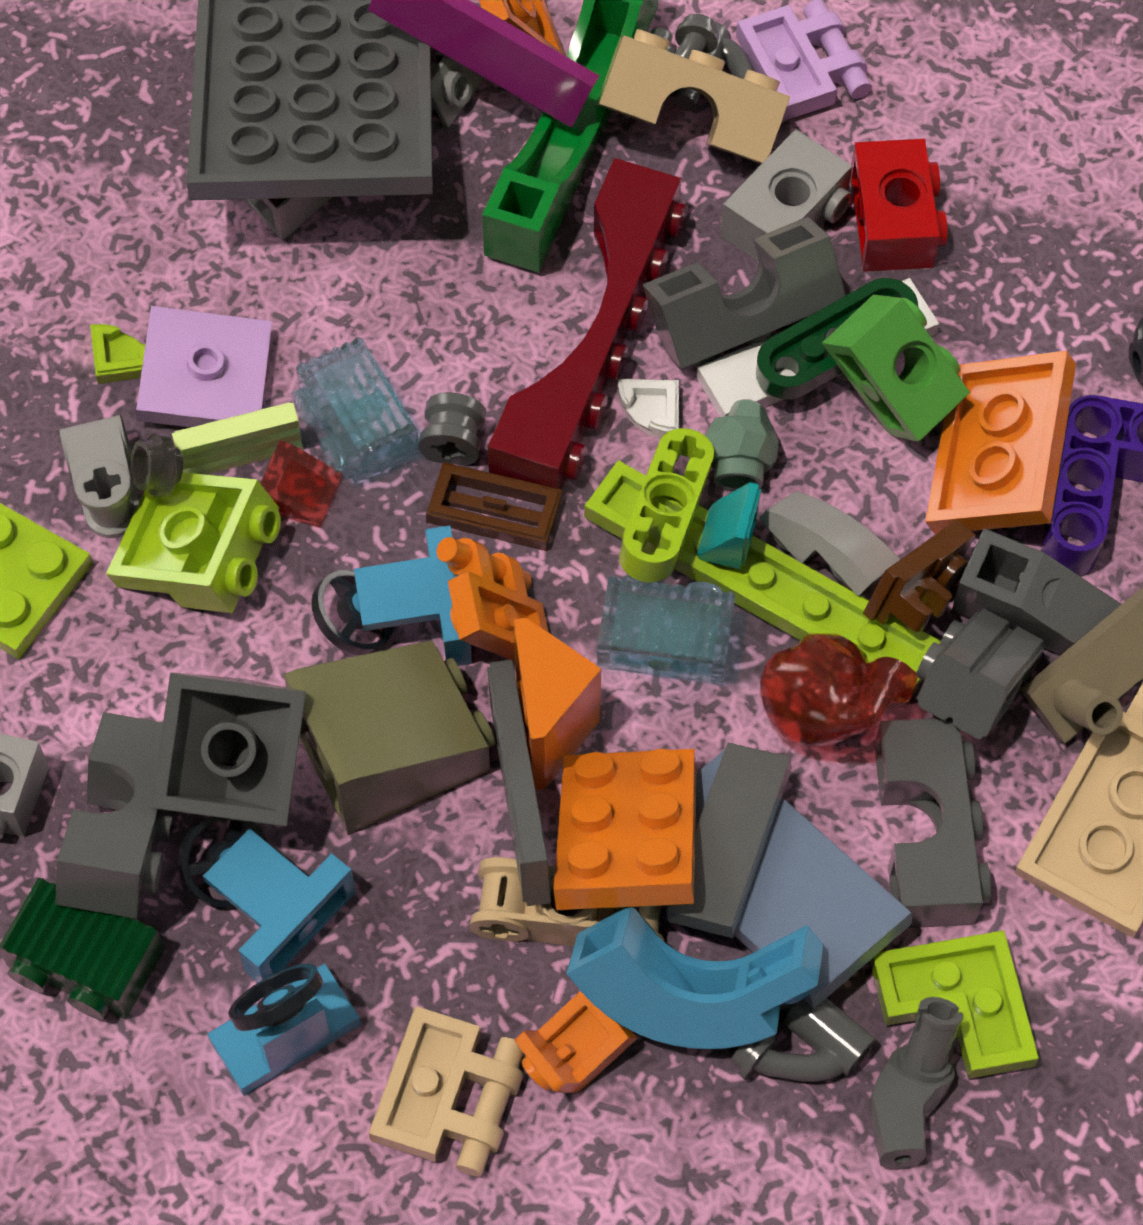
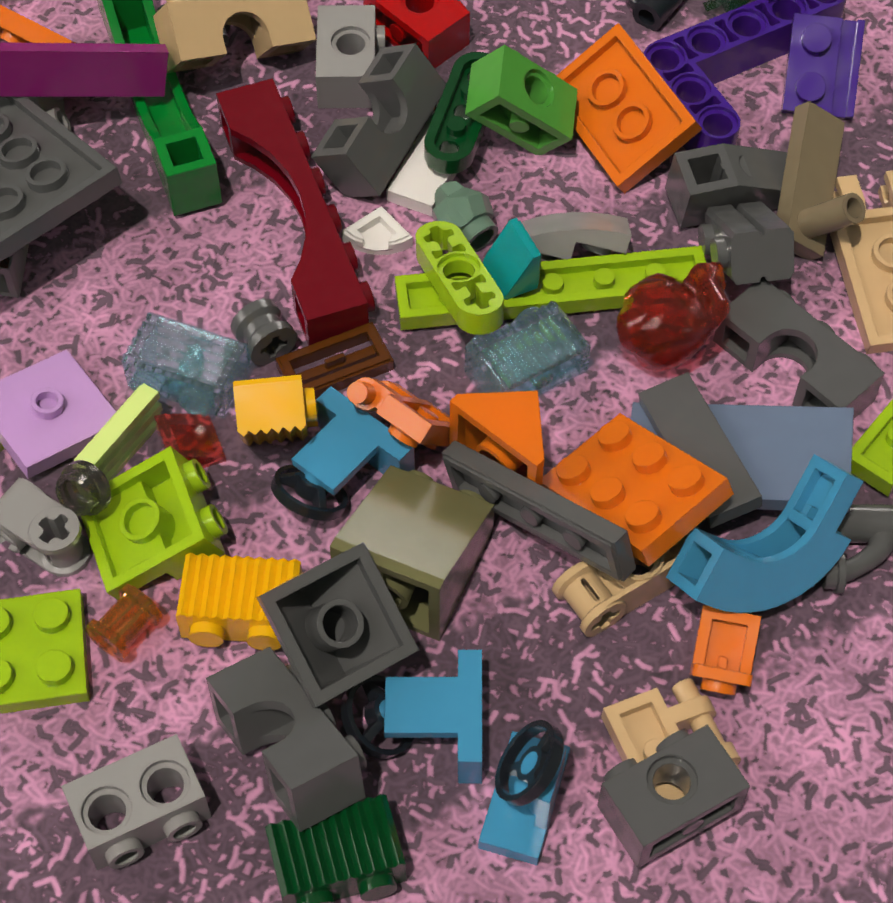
camera: 40 degrees left, 5 degrees down
(96, 611) = (124, 622): none -> clear orange bush
(196, 641) = (221, 601): none -> yellow brick
(373, 511) = (274, 409): none -> yellow brick
(413, 1154) = (654, 824): none -> dark grey brick
(921, 580) = (658, 219): reddish brown plate -> none

